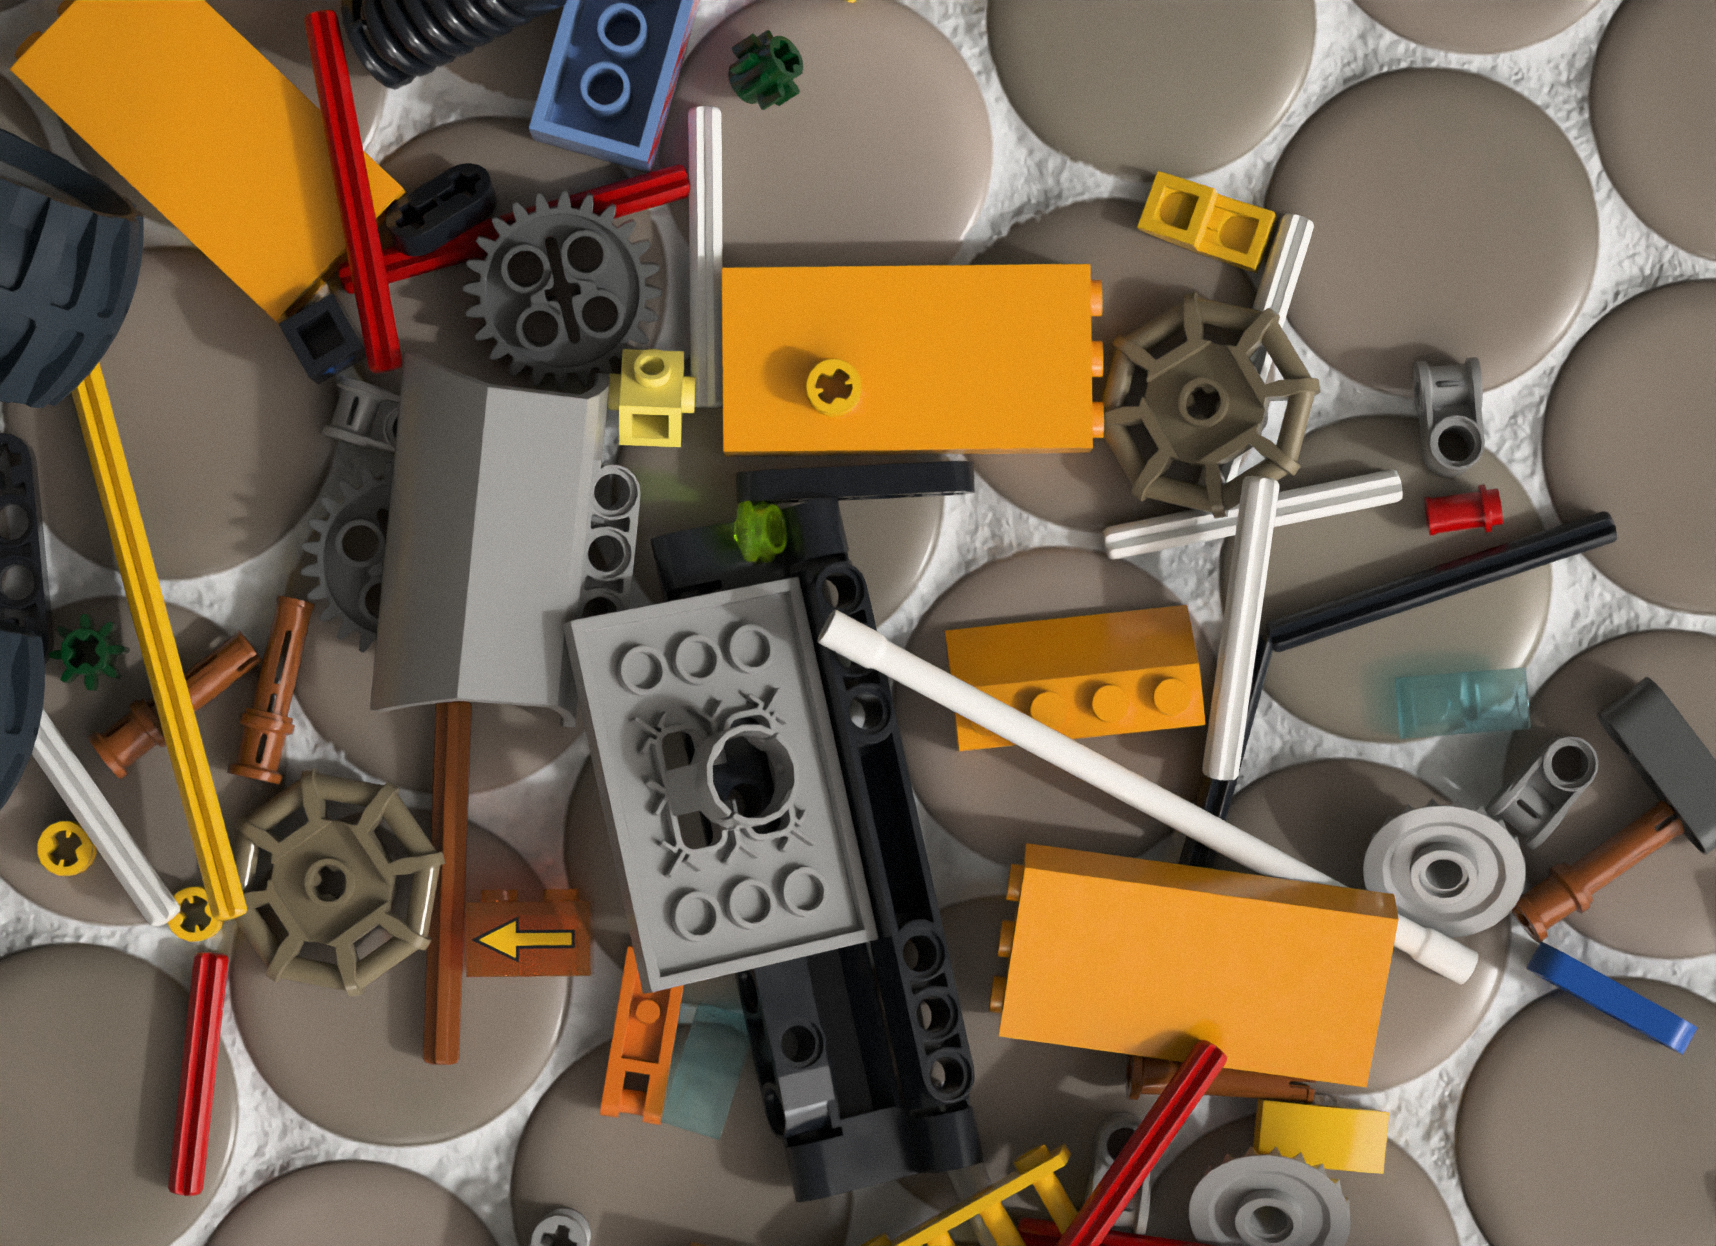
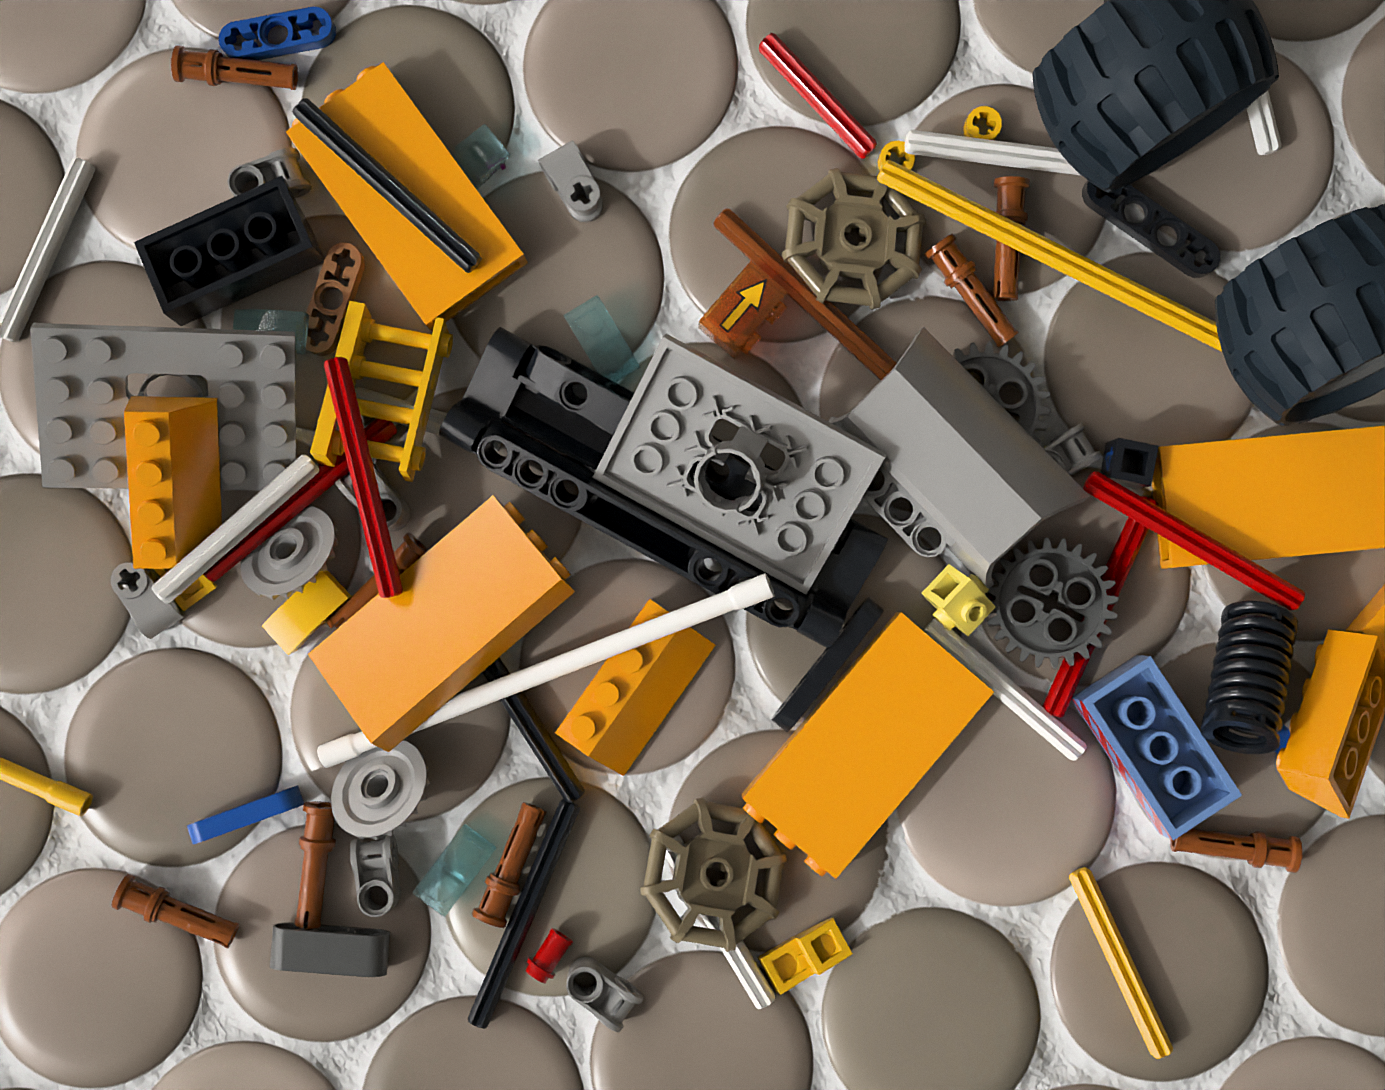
camera: 140 degrees right, 0 degrees up
(72, 655) = (1077, 208): dark green gear -> none
(441, 209) = (1142, 578): black beam -> none
(641, 1044) = (641, 320): orange plate -> none
(760, 531) = (845, 595): clear neon green plate -> none
(765, 70) = (1074, 801): dark green gear -> none
(828, 370) = (874, 689): yellow bush -> none
(1240, 627) = (588, 793): white axle -> none
(1292, 507) = (638, 849): white axle -> none
(1426, 635) = (504, 881): none -> dark orange pin

